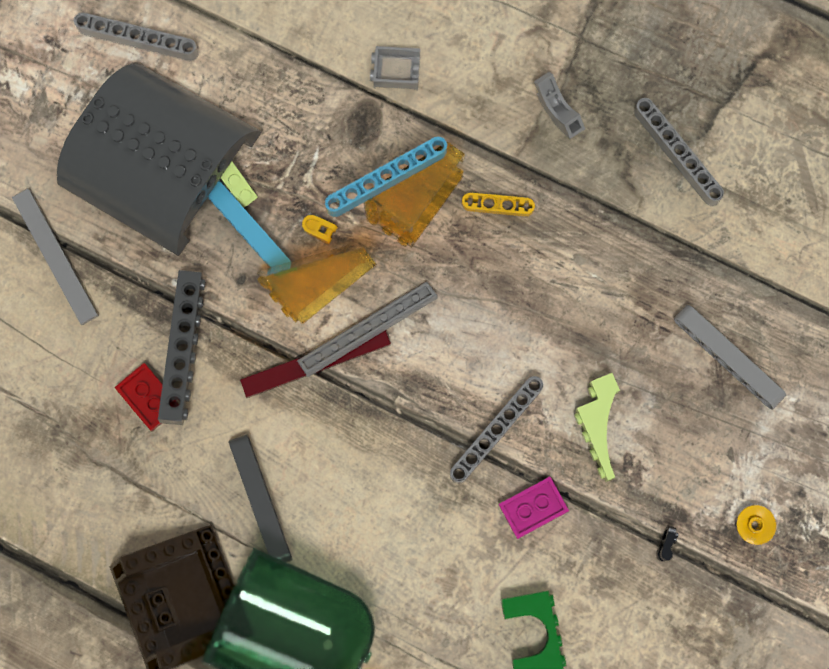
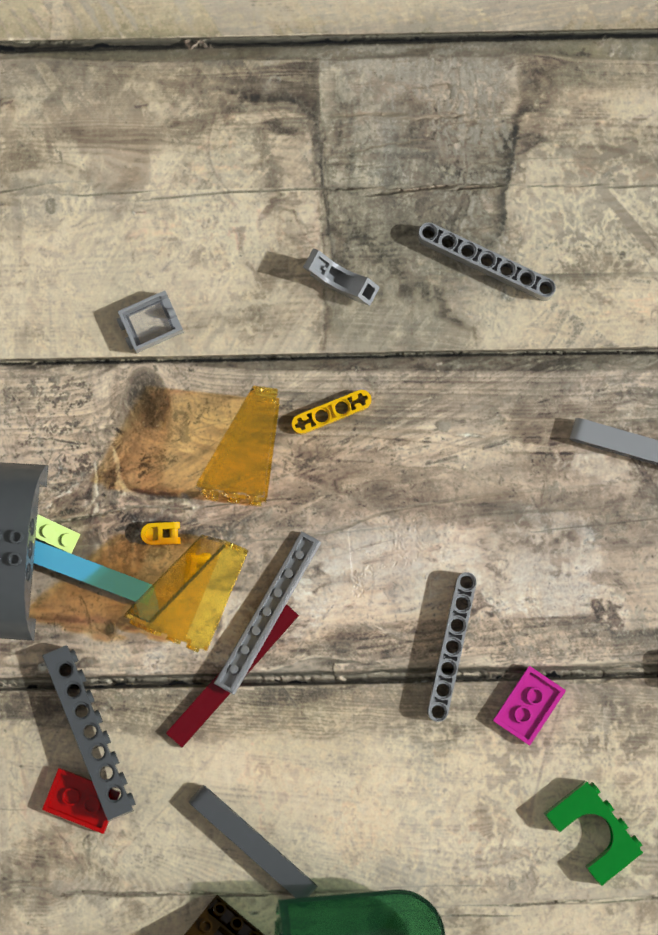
camera: 30 degrees left, 5 degrees up
(390, 168) = (212, 445): medium azure beam -> none
(594, 422) = (545, 587): yellowish green arch -> none

